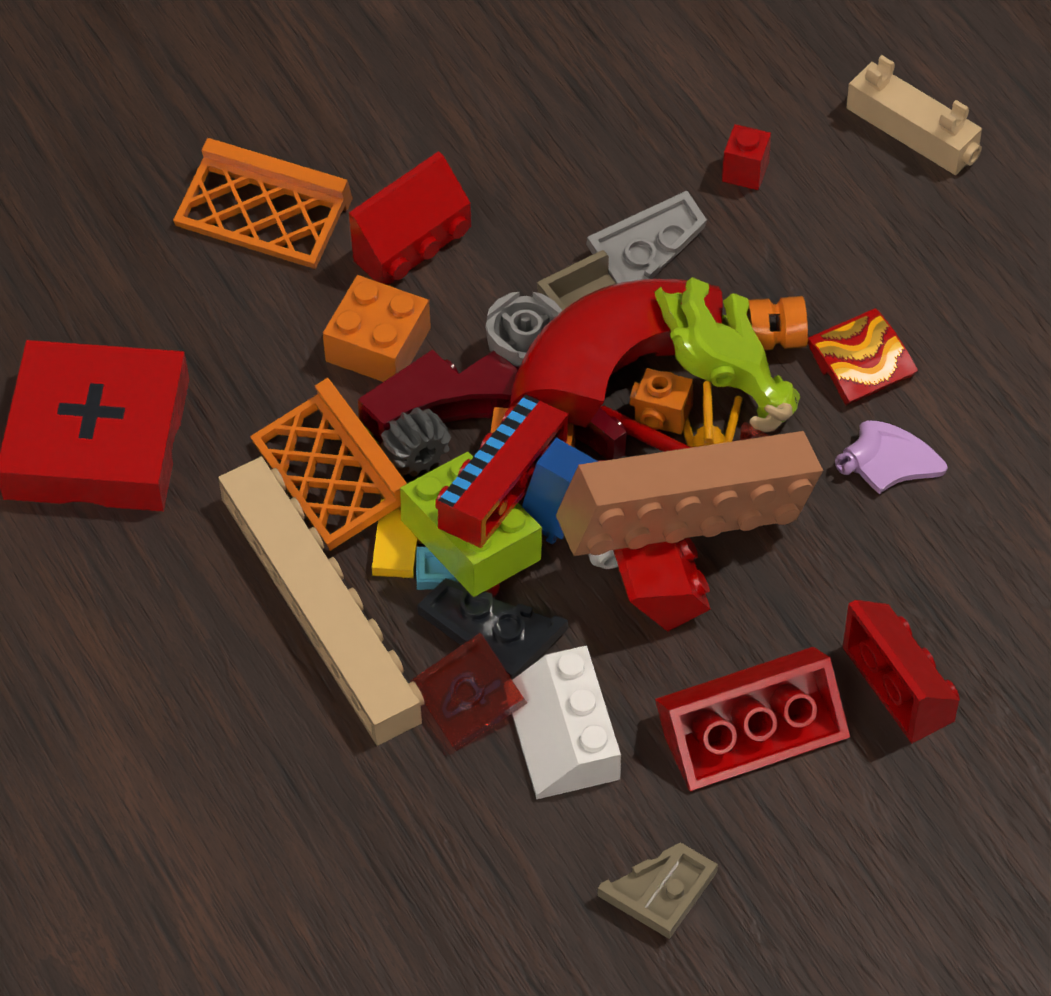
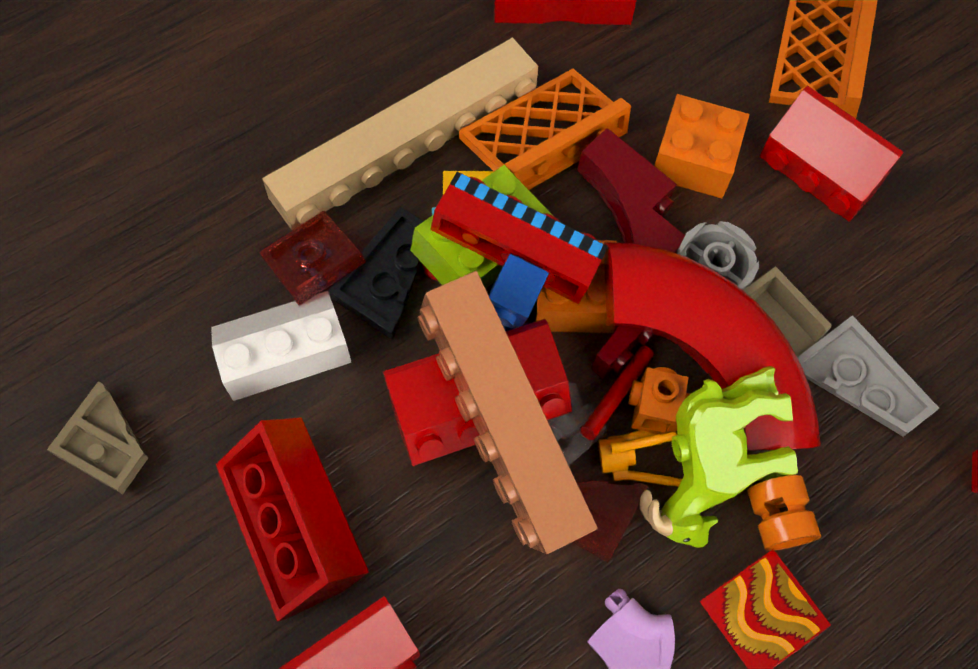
camera: 80 degrees right, 10 degrees up
(415, 441) = (574, 184): dark grey gear -> none

